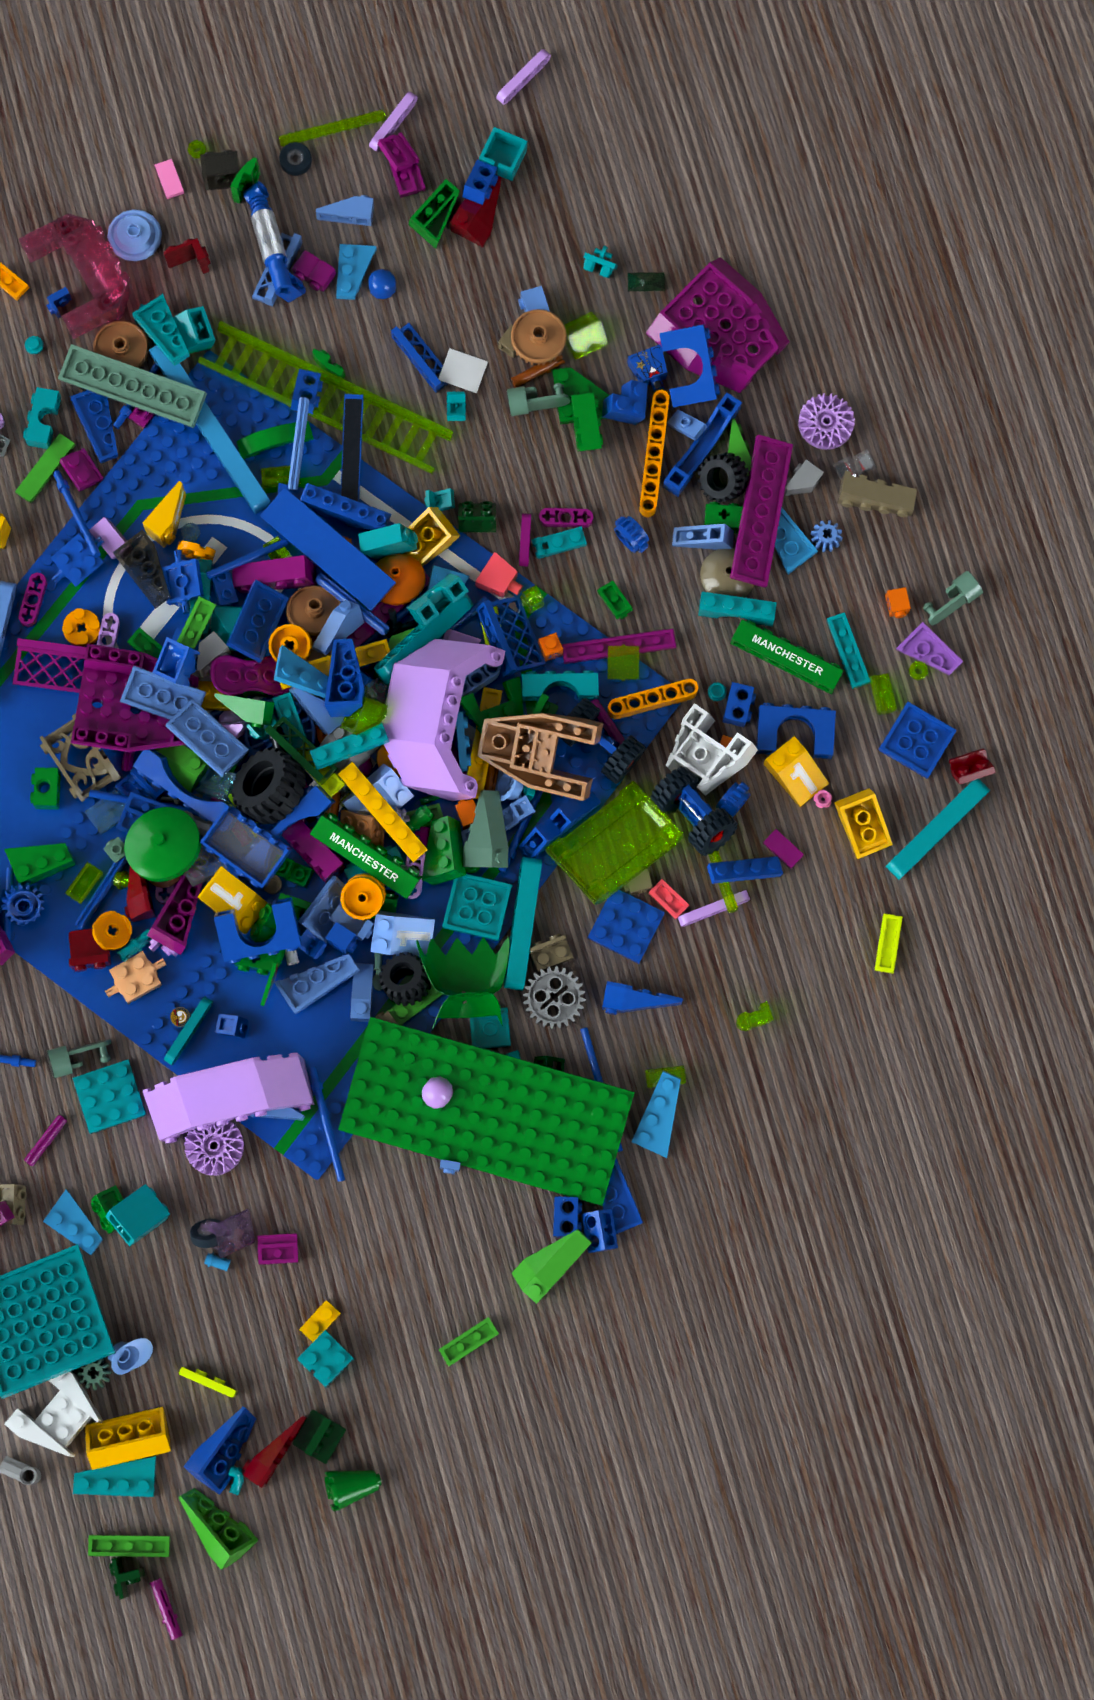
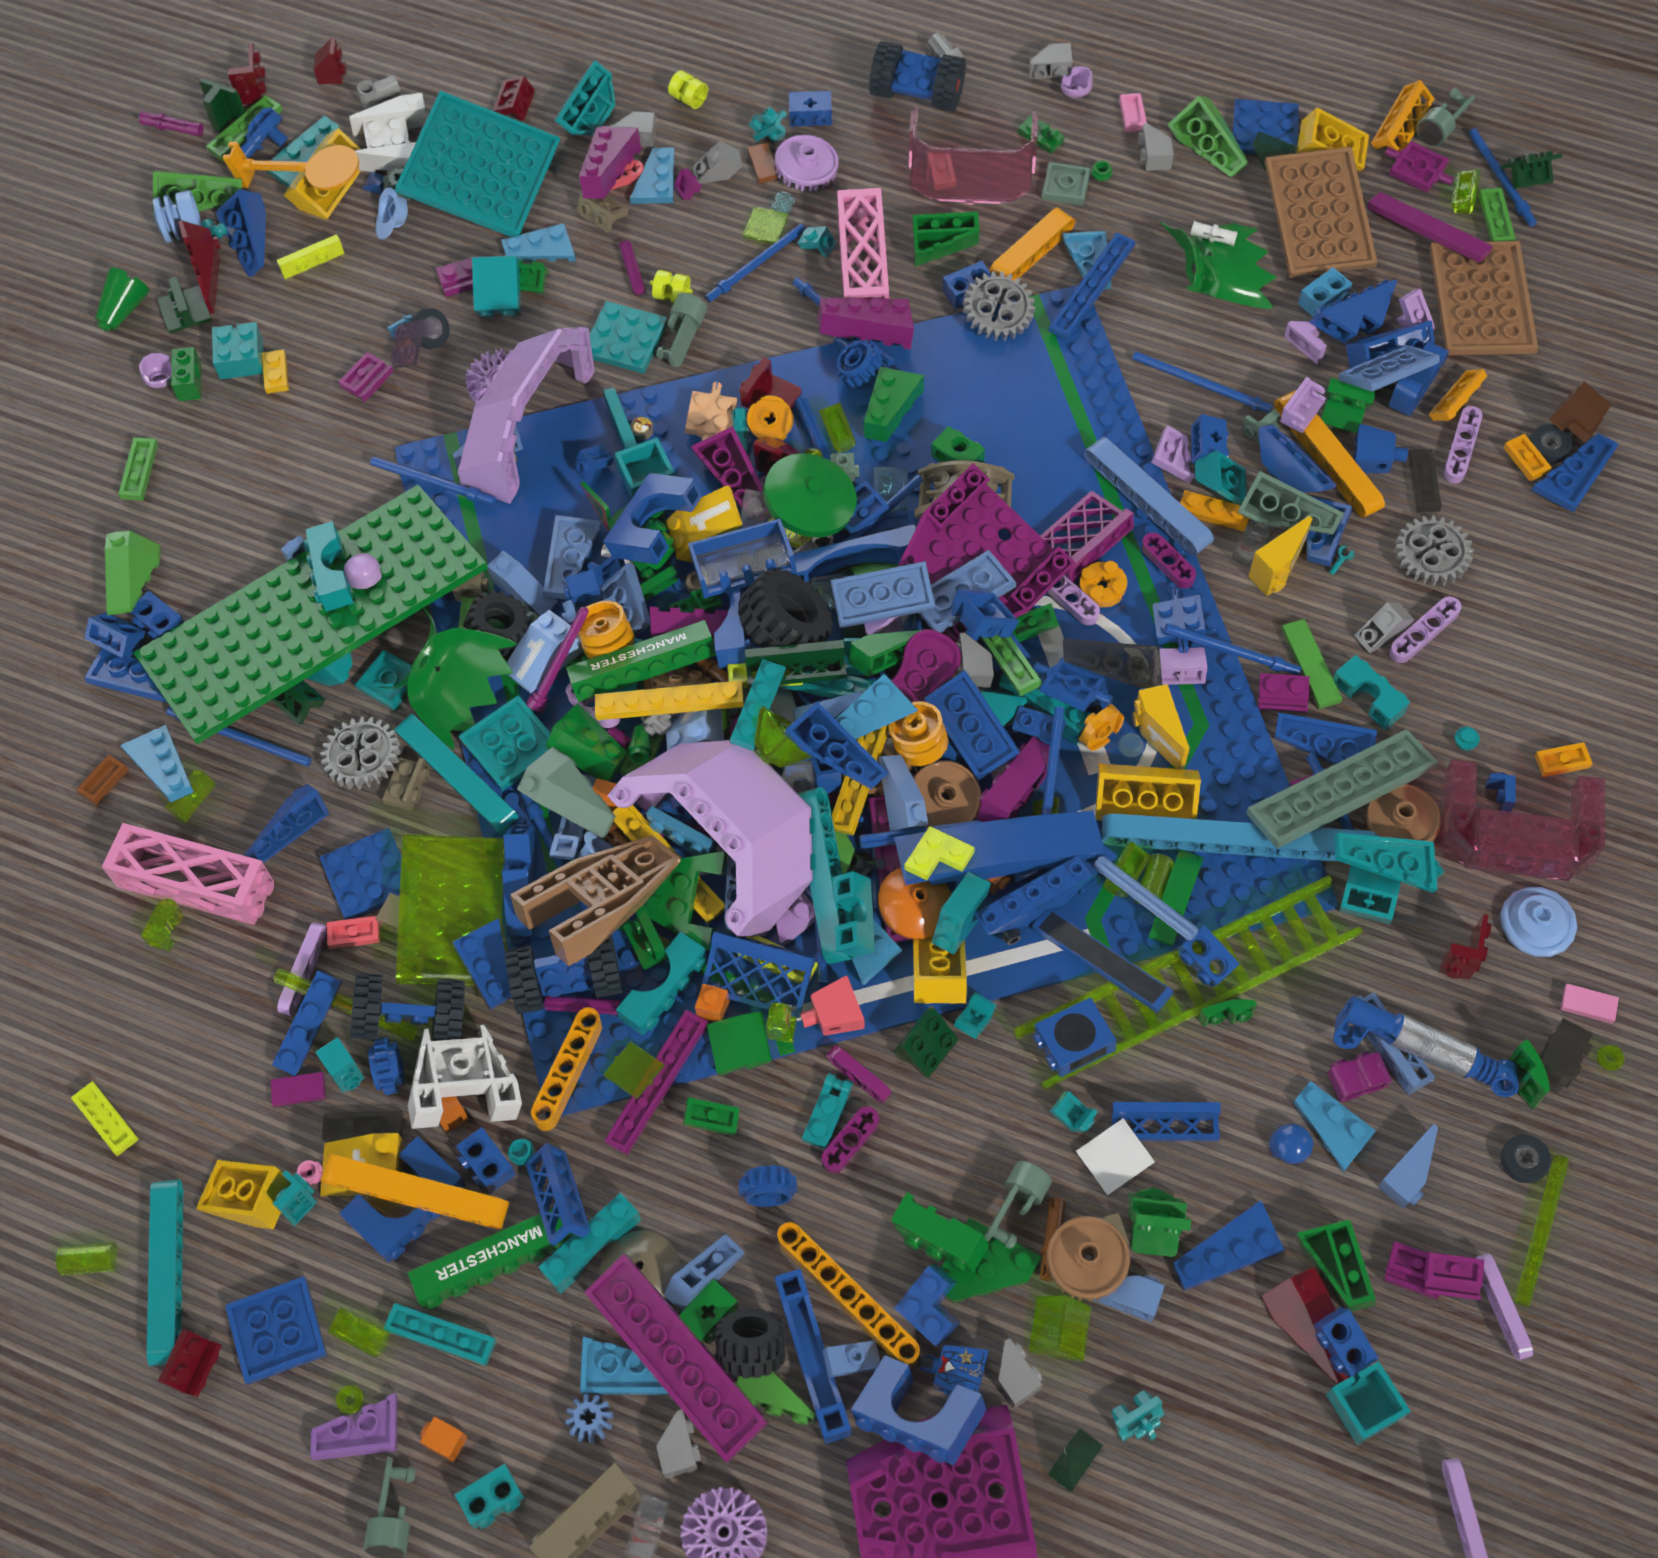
camera: 135 degrees right, 15 degrees down
(24, 1529) = (329, 64): none -> dark red slope
(45, 1091) = (669, 286): none -> neon yellow wheel
(94, 1573) = (249, 79): none -> dark red bracket
(104, 1399) = (374, 183): none -> blue slope
(126, 1521) = (262, 127): none -> blue pin
(128, 1421) = (325, 170): none -> light orange piece
(142, 1259) = (456, 277): none -> magenta plate
(216, 980) = (639, 461): none -> teal piece
(219, 498) = (1147, 791): none -> yellow slope
(249, 1508) = (170, 214): none -> light blue wheel
(274, 457) = (1157, 874): none -> clear neon green brick
(362, 579) = (937, 847): none -> neon yellow plate
(372, 1377) = (186, 374): none -> green brick
(385, 1400) = (156, 370): none -> lavender hair
(413, 432) = (1074, 1037): none -> blue brick
(435, 1139) = (332, 586): none -> teal arch
(436, 911) = (538, 700): none -> magenta piece
(462, 274) = (1233, 1247): none -> blue wing
(483, 321) = (1156, 1222): none -> green piece
(560, 616) = (739, 1043): none -> green slope
(628, 338) = (1016, 1377): none -> light grey slope
(628, 795) = (484, 960): none -> blue wing
(696, 1149) = (102, 779): none -> dark orange tile
(701, 973) = (250, 876): none -> bright pink piece
(723, 639) = (561, 1188): none -> blue fence
(753, 827) = (340, 1065): none -> teal brick
(773, 793) = (354, 1124): none -> clear smoke tile
(790, 717) = (414, 1191): none -> light orange beam
(844, 785) = (296, 1199): none -> teal bracket
(903, 559) = (486, 1490): none -> teal brick
(966, 880) = (86, 1258): none -> clear neon green brick

